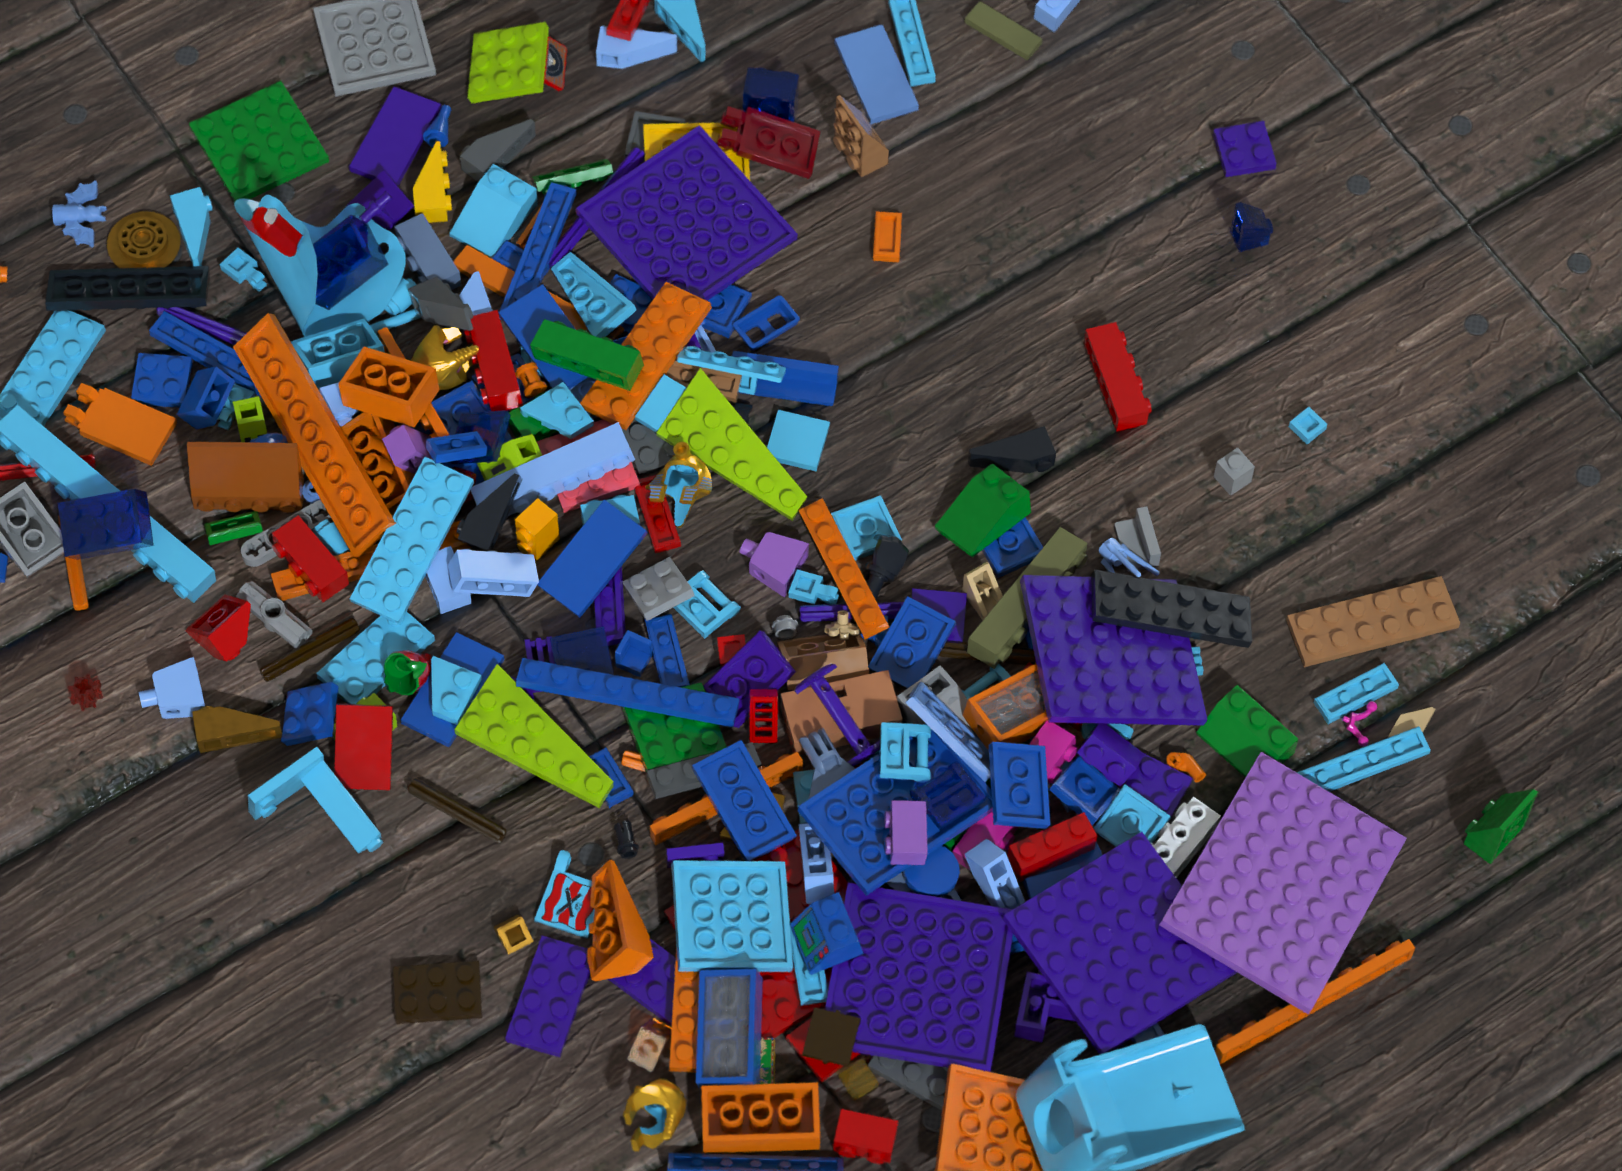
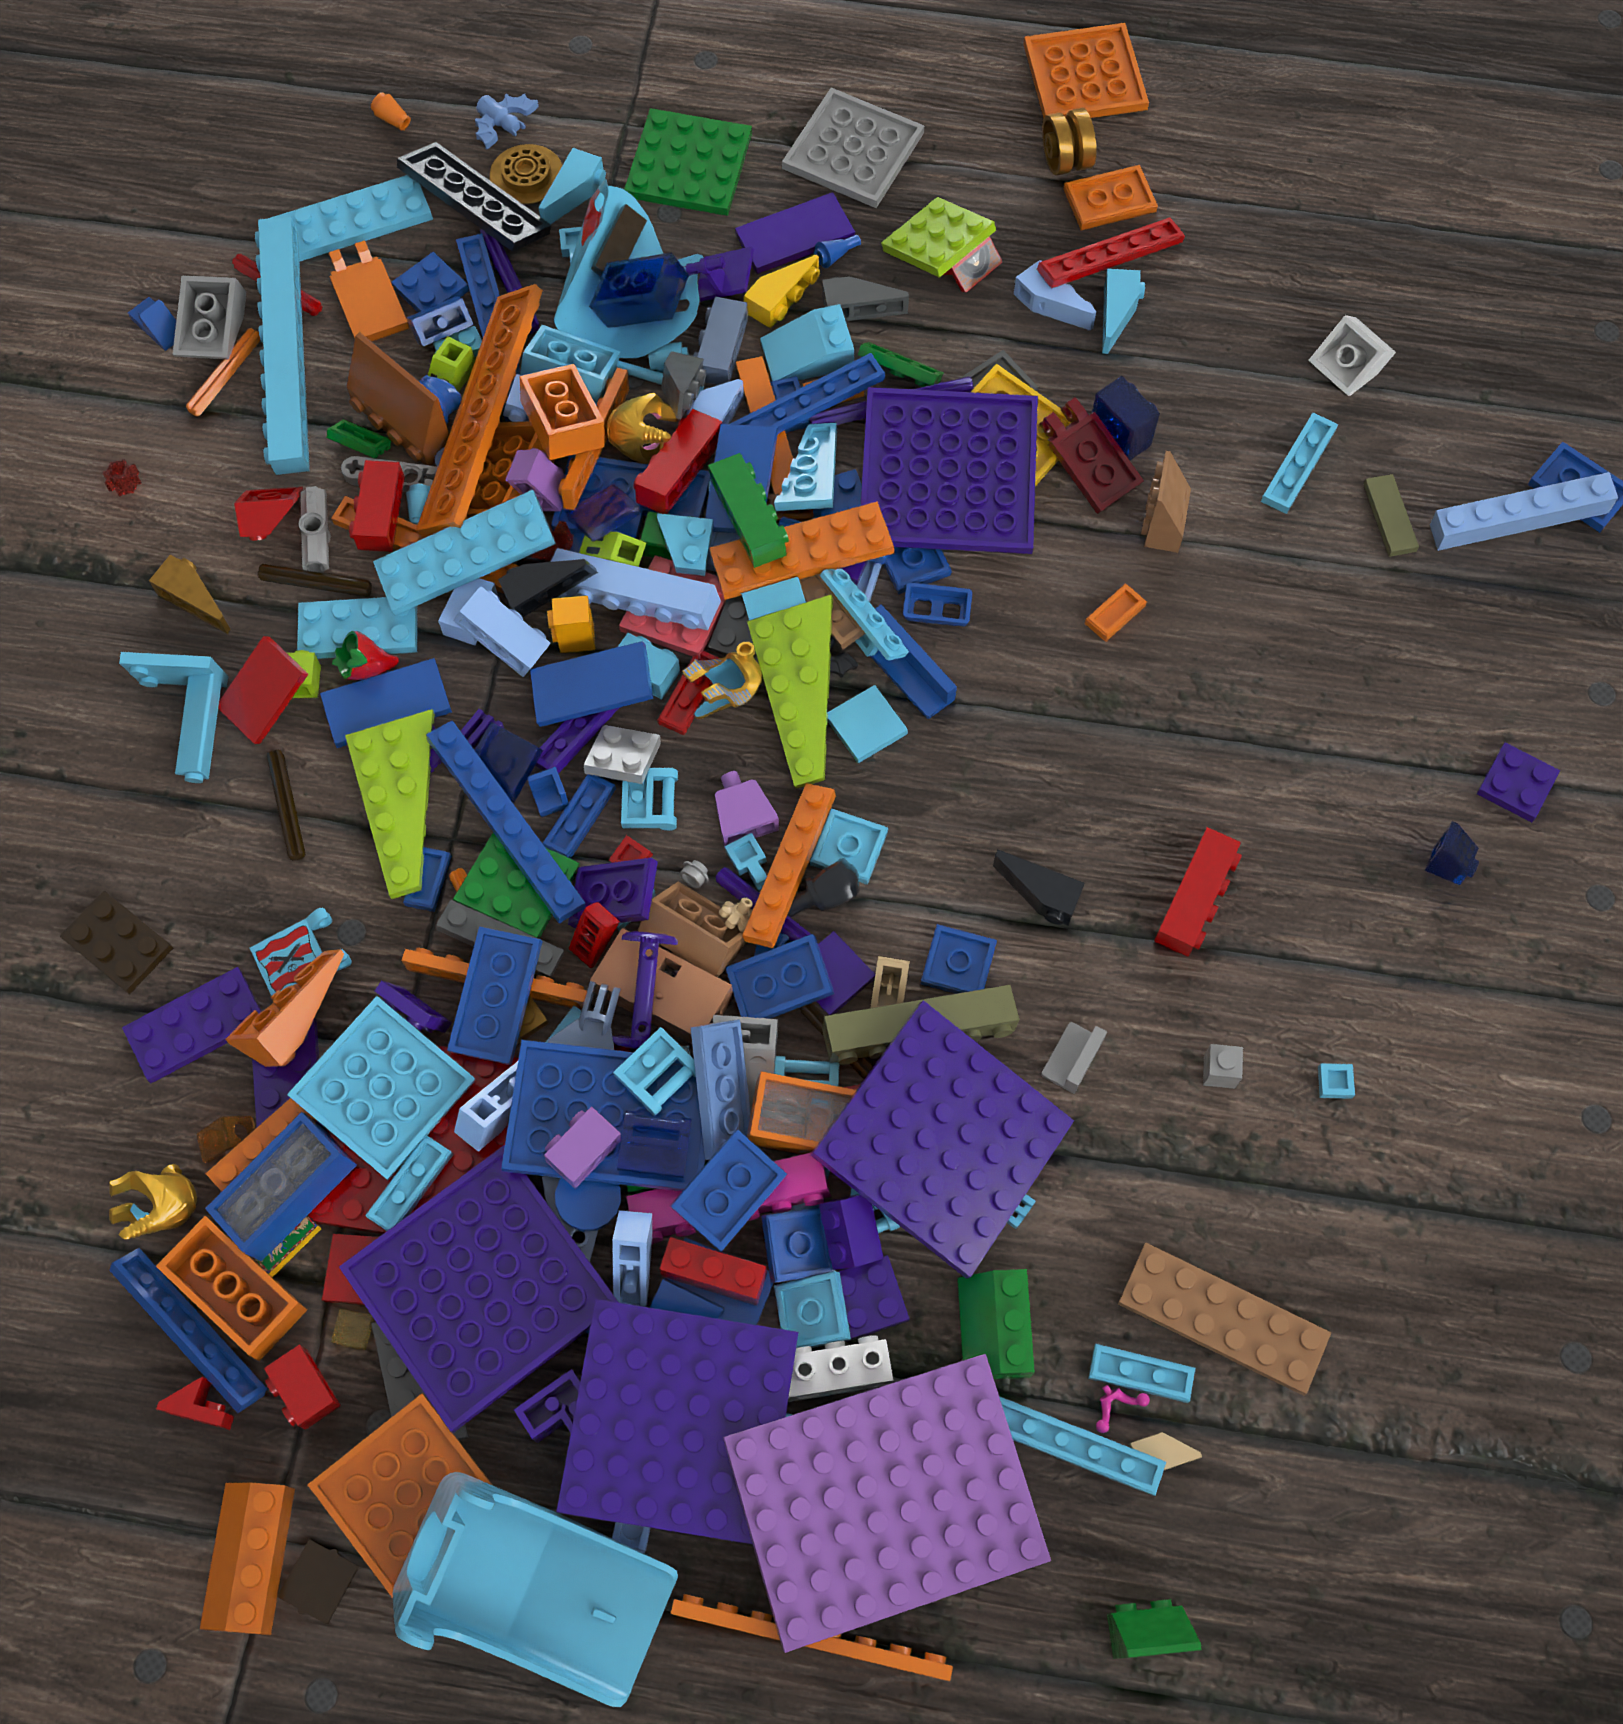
camera: 45 degrees right, 5 degrees up
(105, 524) = (252, 354): clear blue brick -> none
(175, 690) = (185, 530): light blue torso -> none
(309, 713) = (247, 631): blue plate -> none
(452, 689) = (378, 700): medium azure wing -> none
(456, 447) = (566, 502): blue plate -> none
(513, 934) = (221, 945): pearl gold slope -> none
(530, 379) = (692, 498): orange bush -> none
(627, 845) = (384, 944): black pin -> none
(825, 934) = (437, 1177): blue slope -> none
(831, 1037) = (351, 1272): dark brown piece -> none
(876, 74) = (1240, 470): medium blue tile -> none
(984, 510) = (958, 915): green slope -> none
(1116, 554) = (1039, 1051): light blue plant -> none
(1171, 608) = (1037, 1145): black plate -> none
(1186, 763) = (917, 1298): orange arm -> none

